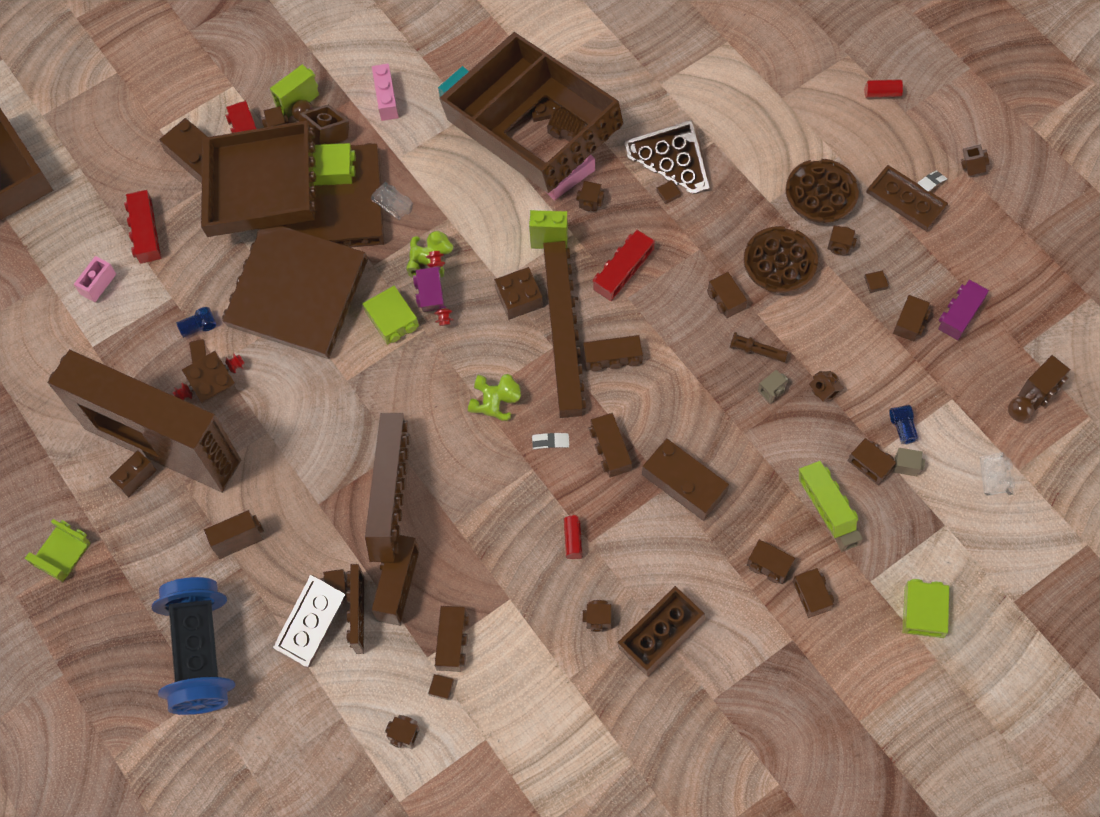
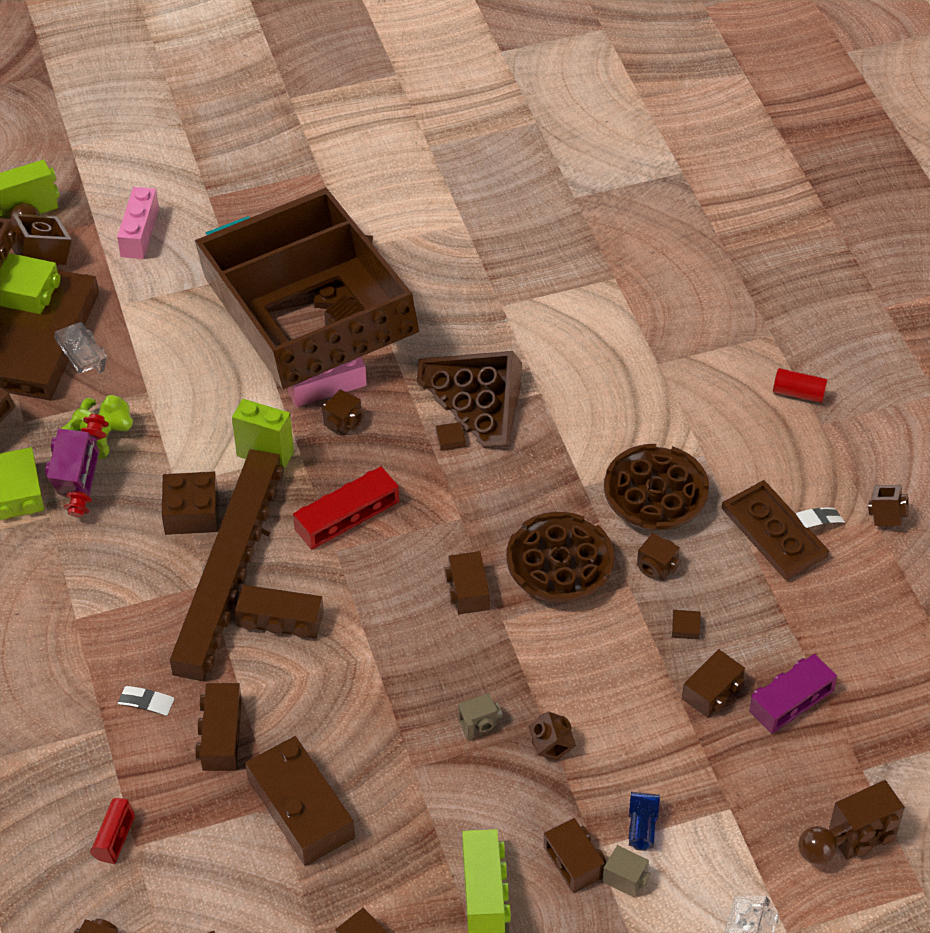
camera: 15 degrees right, 15 degrees down
(506, 391) = (113, 617): lime animal -> none
(750, 345) = (471, 655): reddish brown pin -> none

